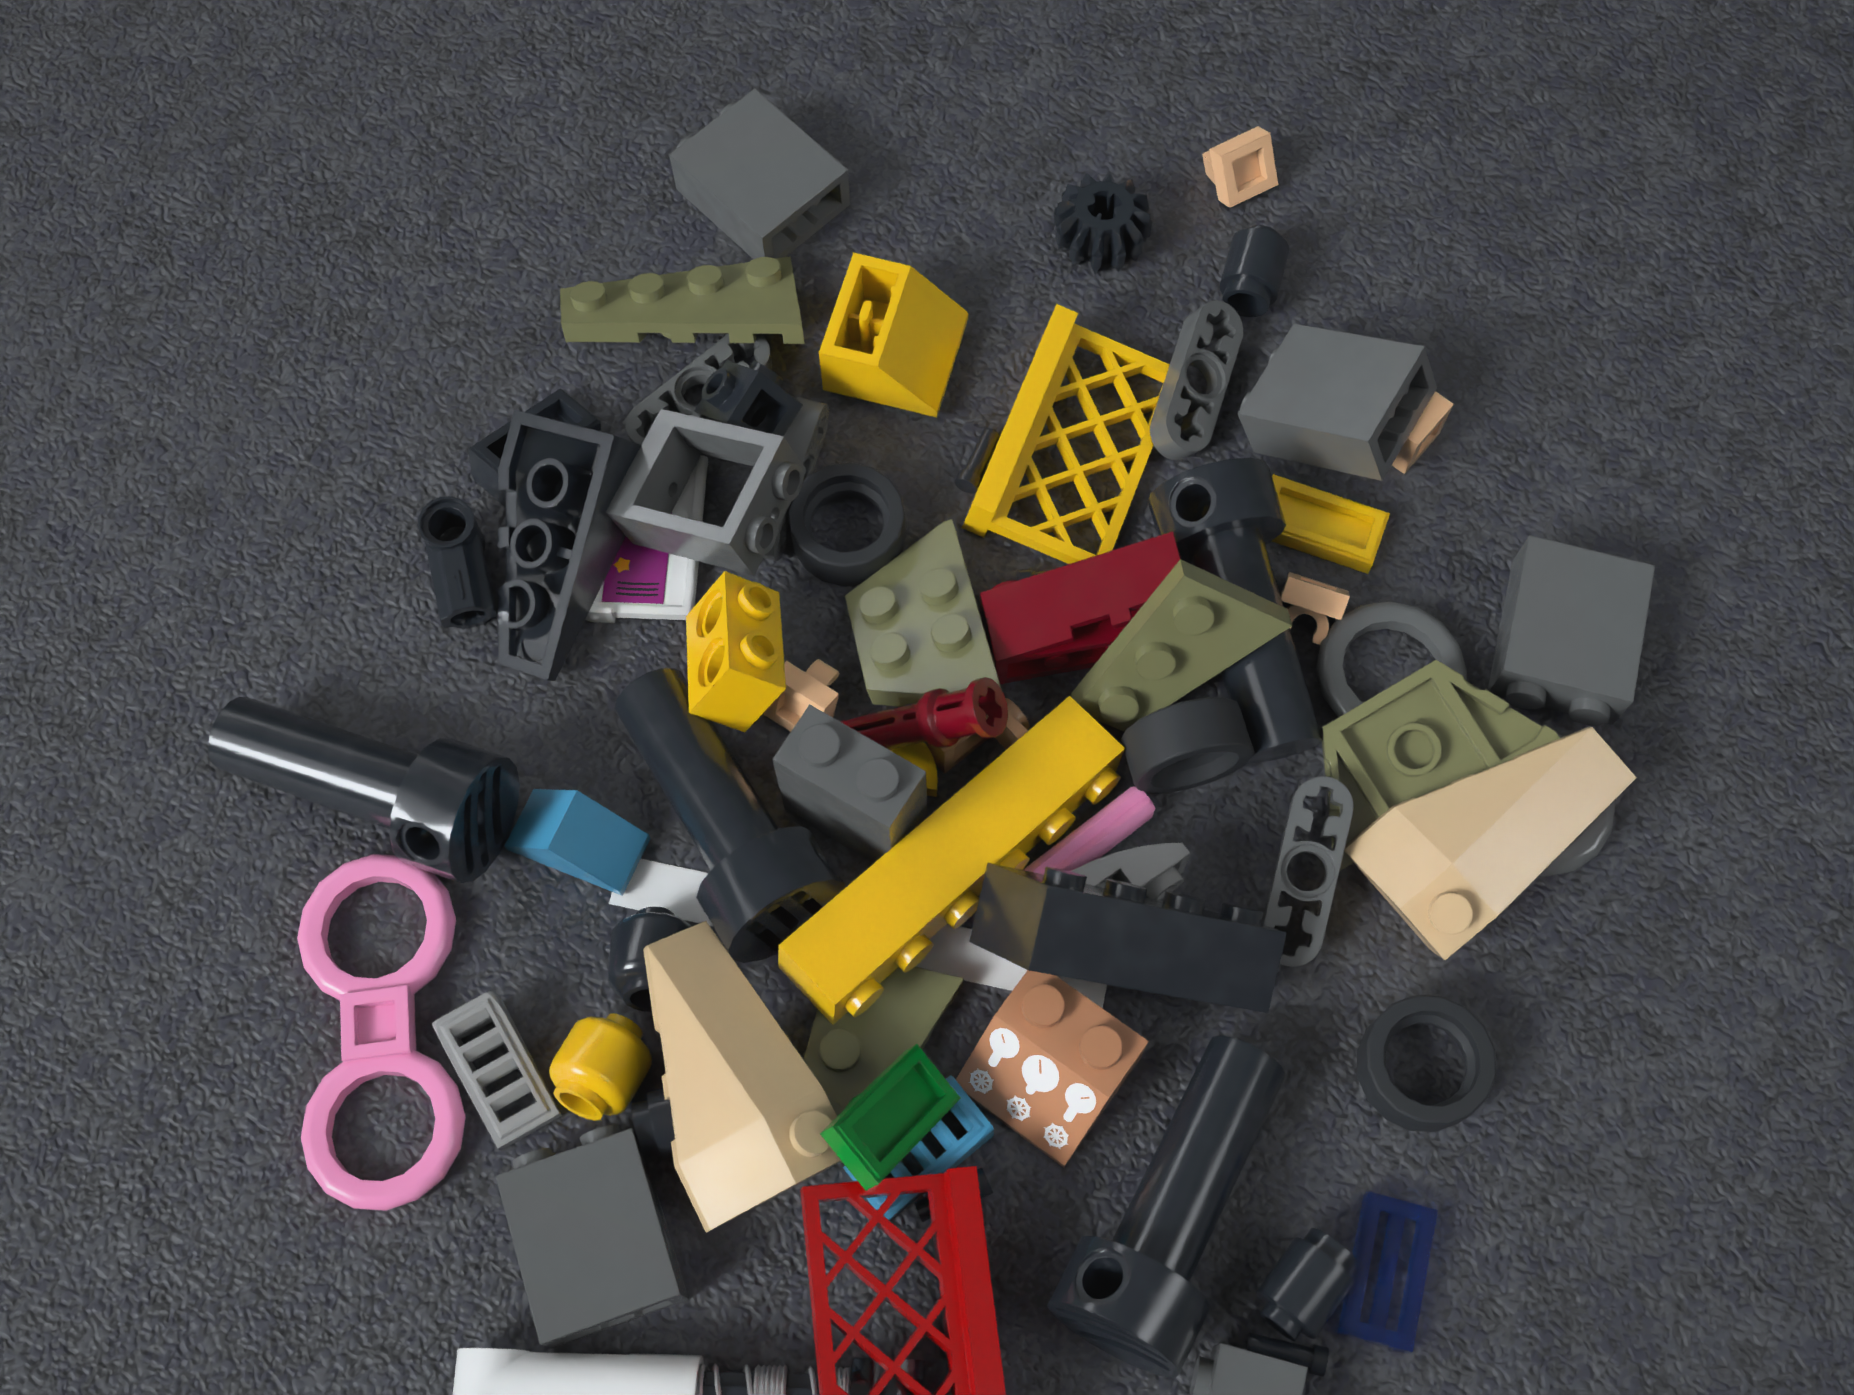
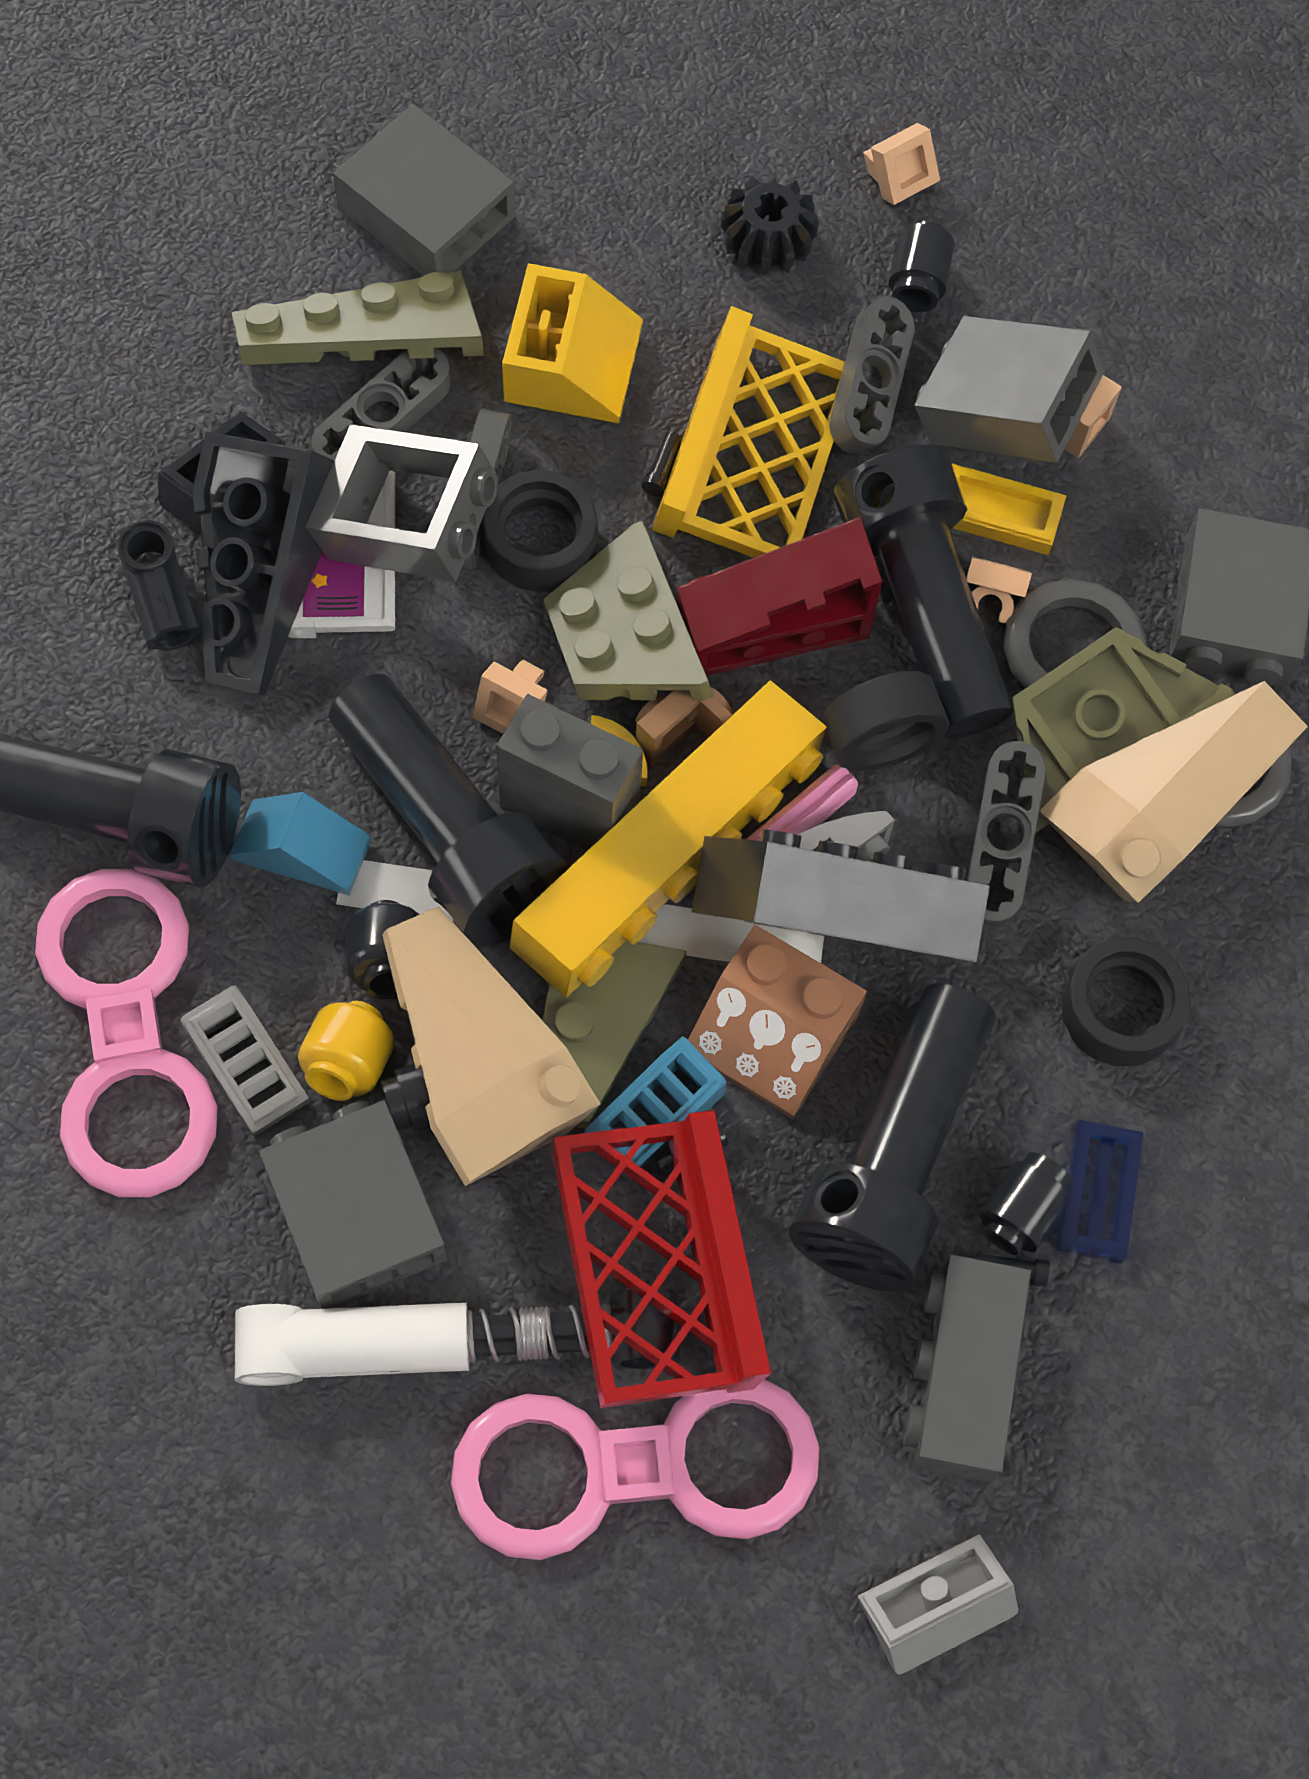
camera: 10 degrees left, 0 degrees up
(735, 652) = (443, 655): yellow brick -> none
(748, 399) = (435, 410): black brick -> none
(890, 1117) = (631, 1069): green tile -> none
(939, 717) = (653, 703): dark red pin -> none
(1175, 644) = (870, 624): olive wing -> none

